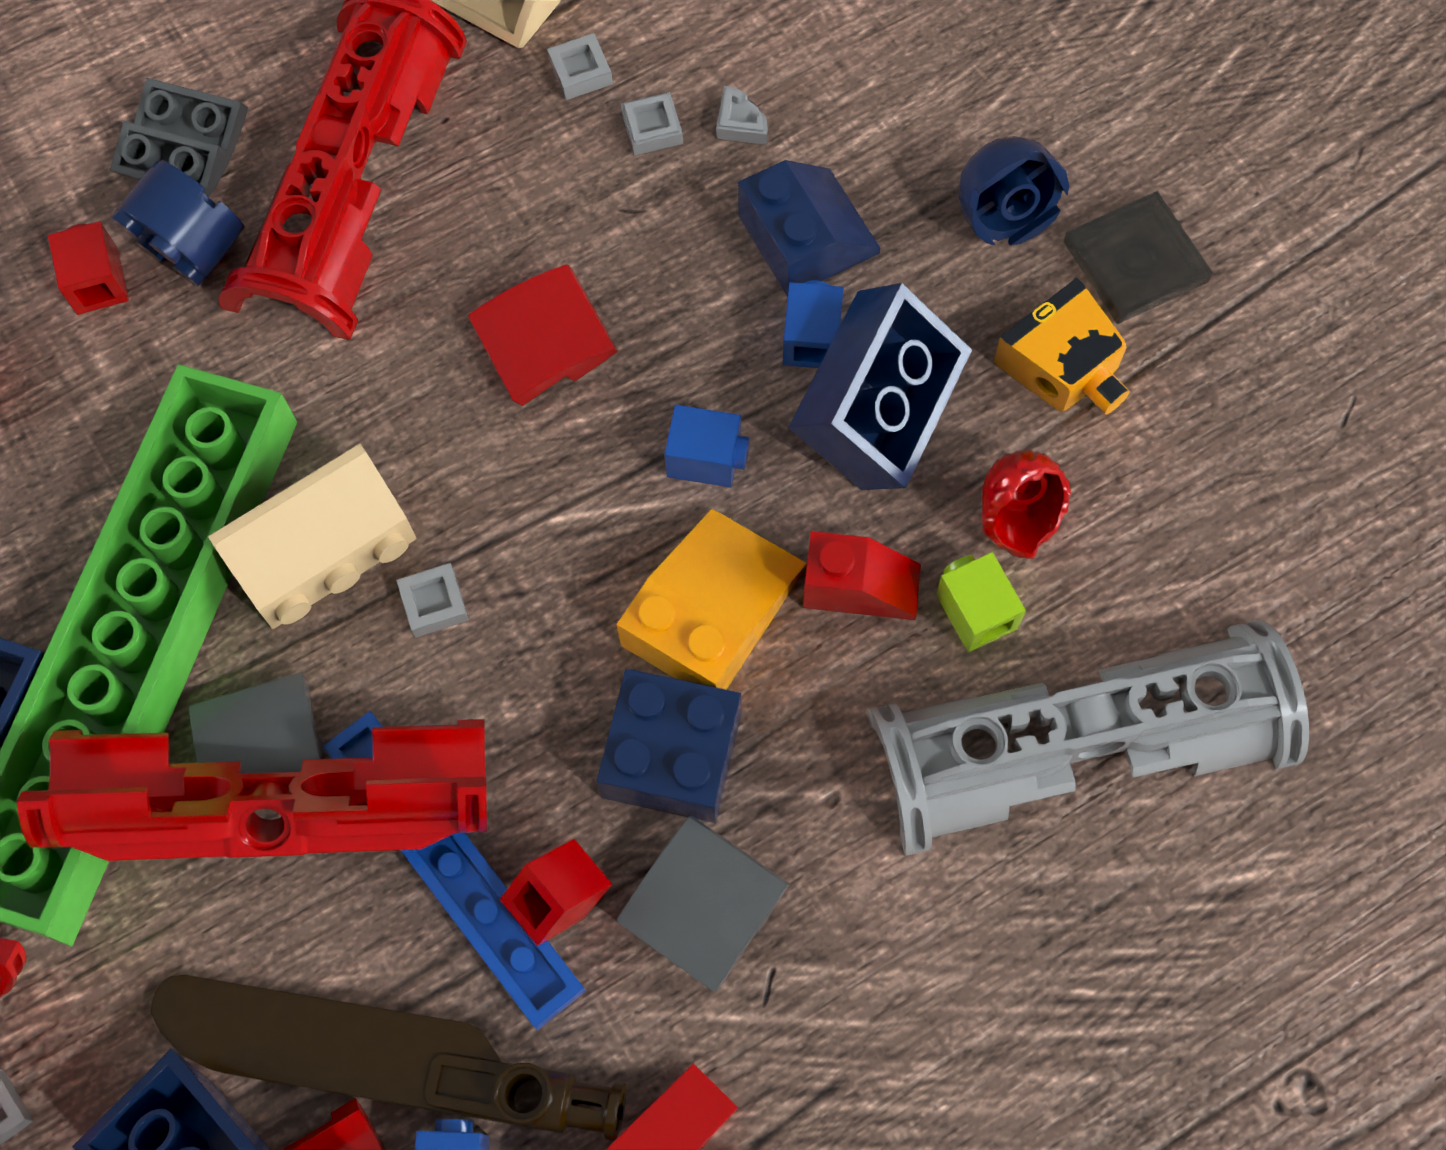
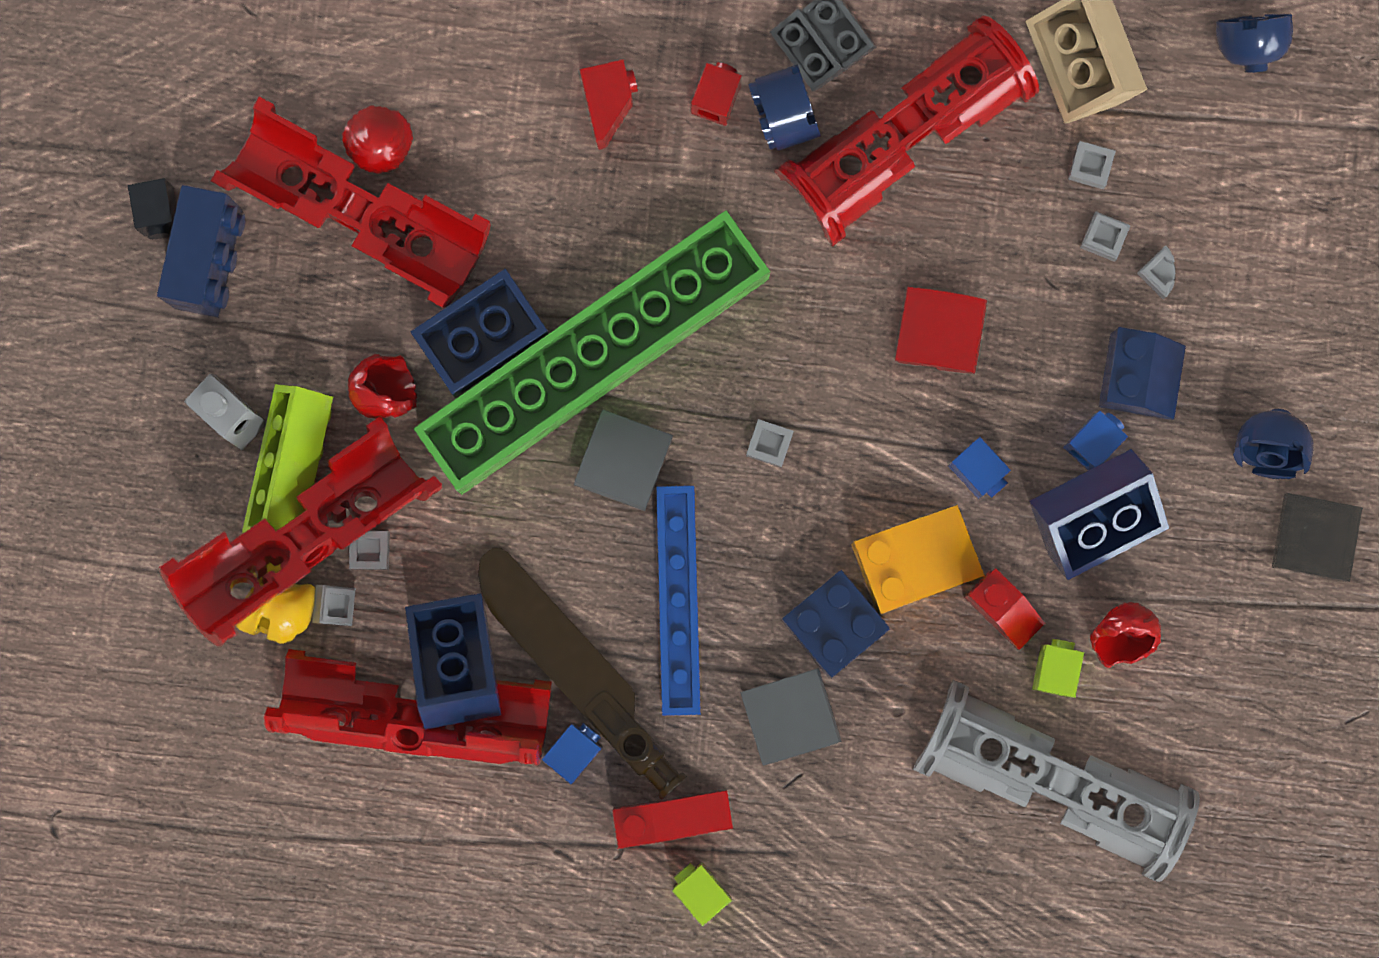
camera: 40 degrees right, 15 degrees up
(129, 803) = (680, 551): red piece -> none
(314, 537) = (731, 369): tan slope -> none
(555, 891) = (721, 656): red brick -> none
(1066, 351) = (1225, 566): light orange torso -> none

